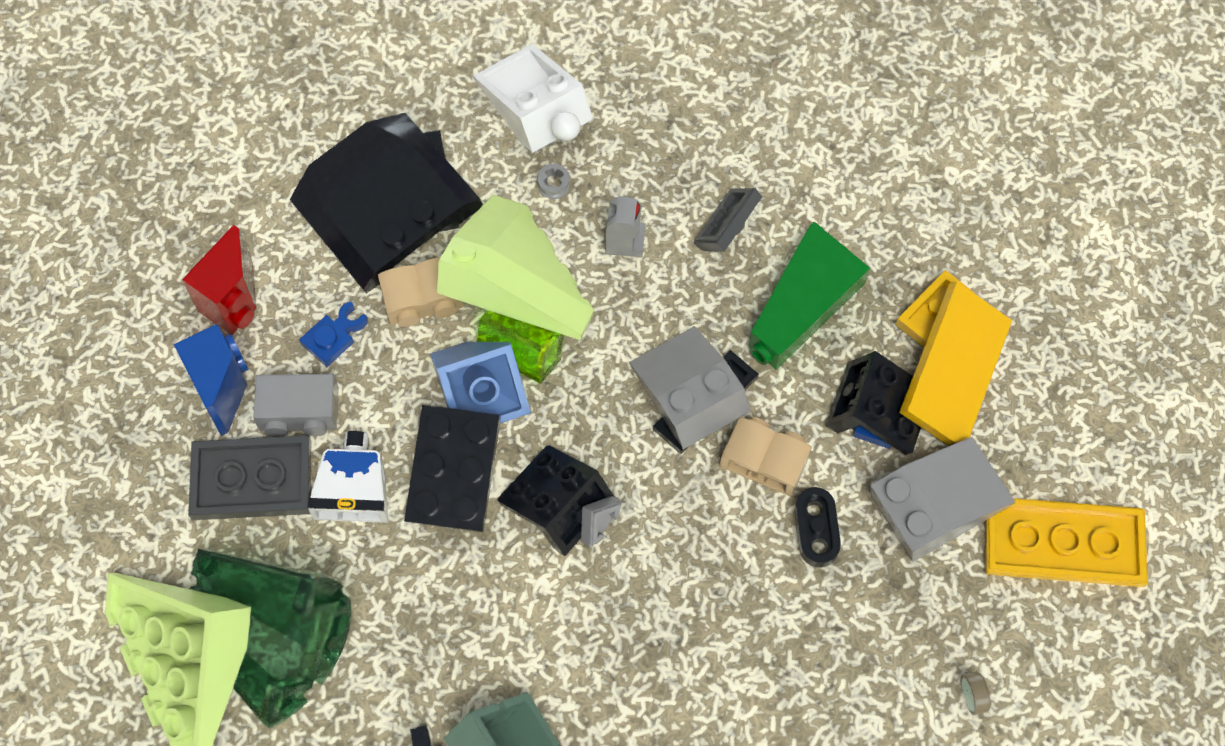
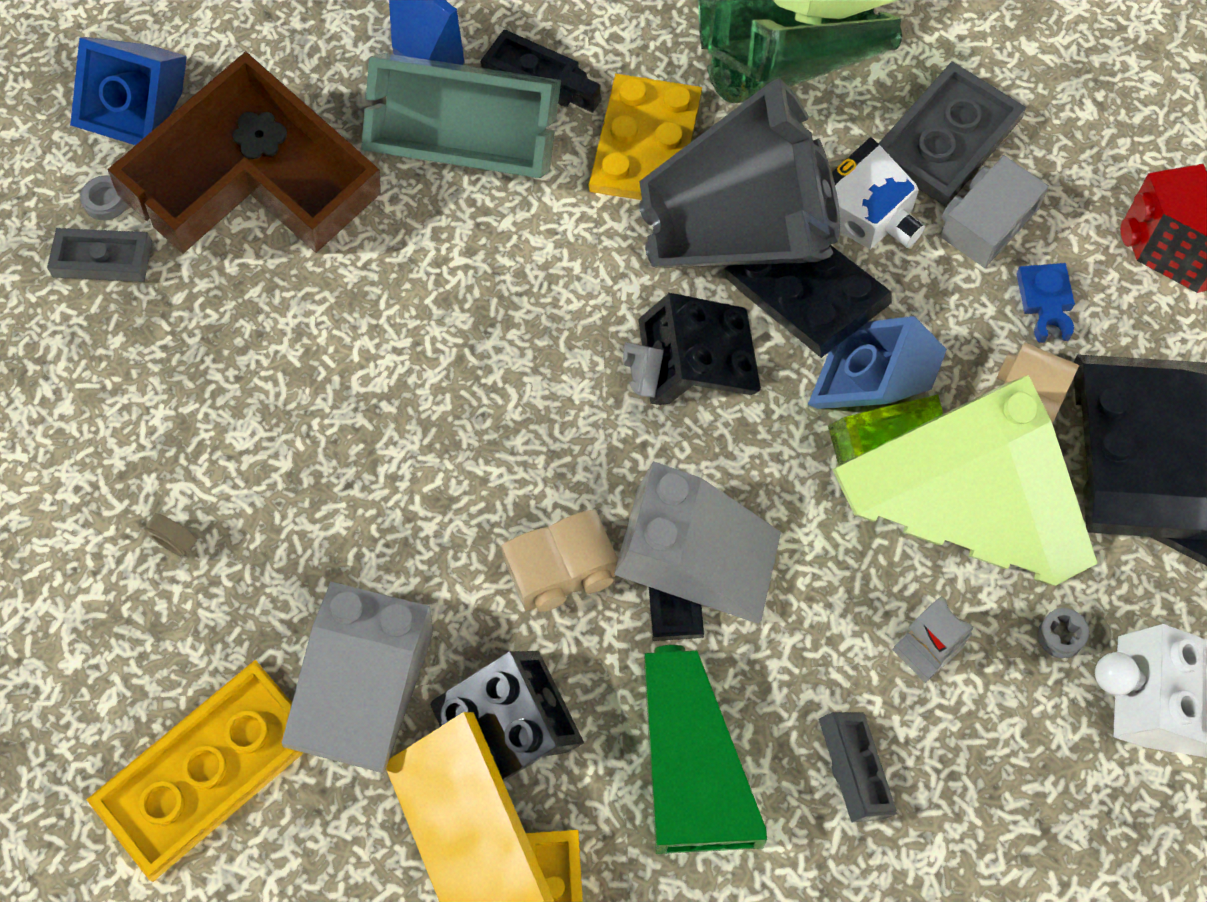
camera: 135 degrees right, 0 degrees up
(216, 373) = (1074, 149): blue slope -> none
(421, 670) = (641, 131): none -> yellow plate
(440, 531) = (744, 191): none -> dark grey cone
(818, 528) = (451, 546): black plate -> none

